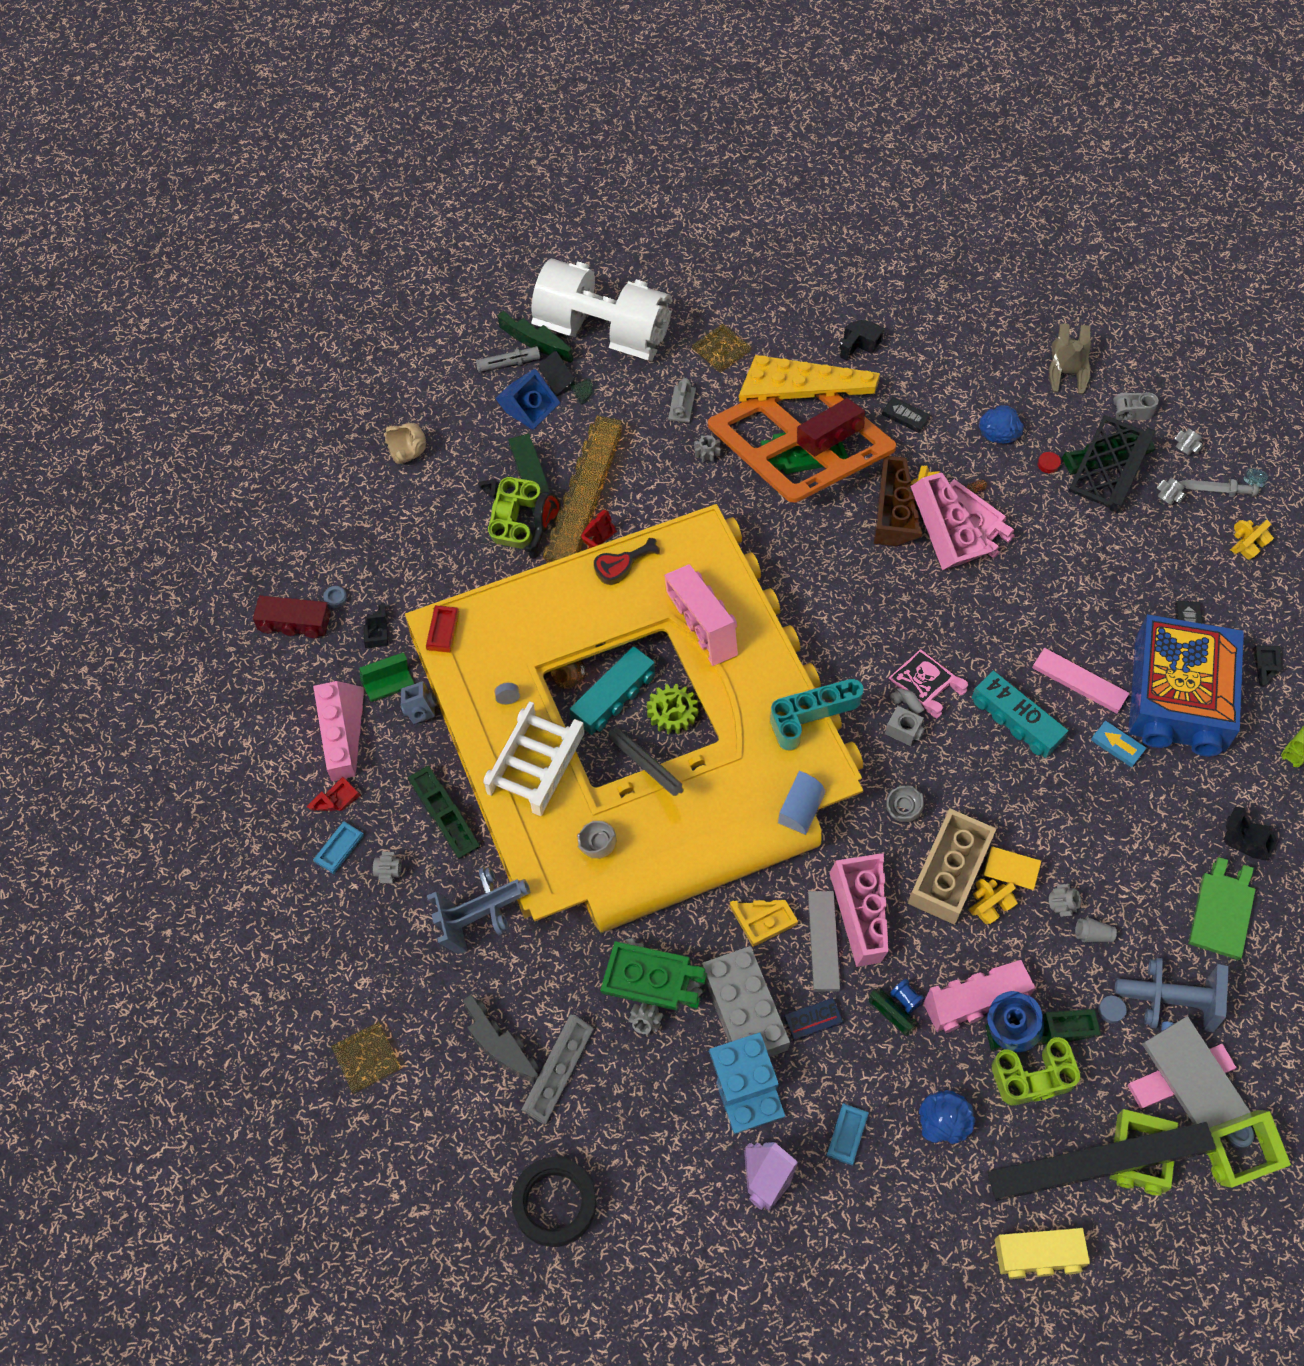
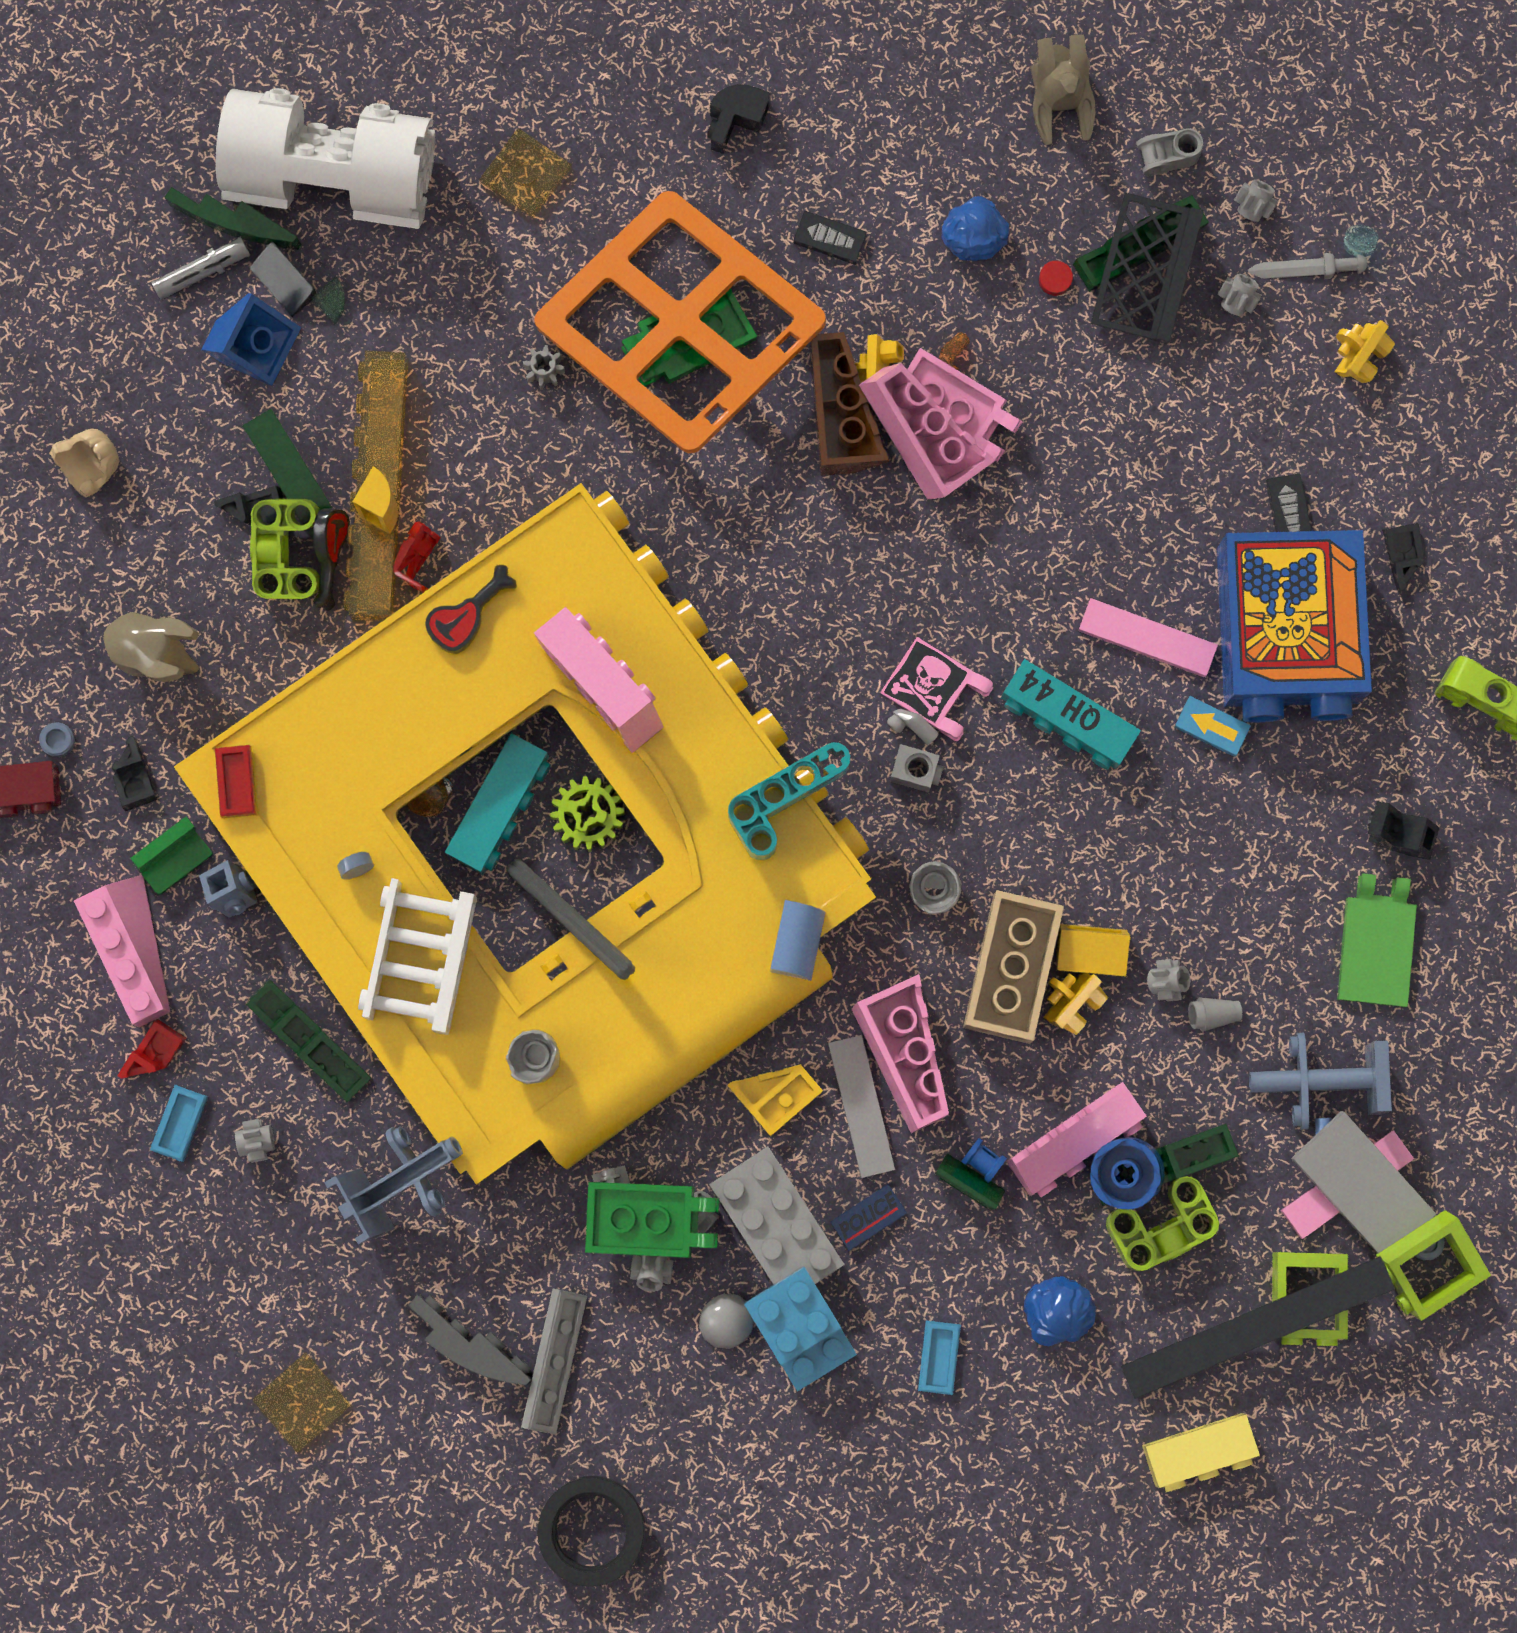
camera: 15 degrees left, 20 degrees up
(412, 547) = (150, 646): none -> dark tan piece
(581, 489) = (376, 502): none -> yellow brick
(682, 401) = (487, 289): light grey hinge -> none
(692, 1070) = (725, 1321): none -> light grey hair
(768, 1173) = (847, 1444): lavender wedge -> none
(803, 380) = (653, 214): yellow wing -> none
(830, 427) = (723, 307): dark red brick -> none
(1112, 1009) = (1249, 1115): sand blue tile -> none

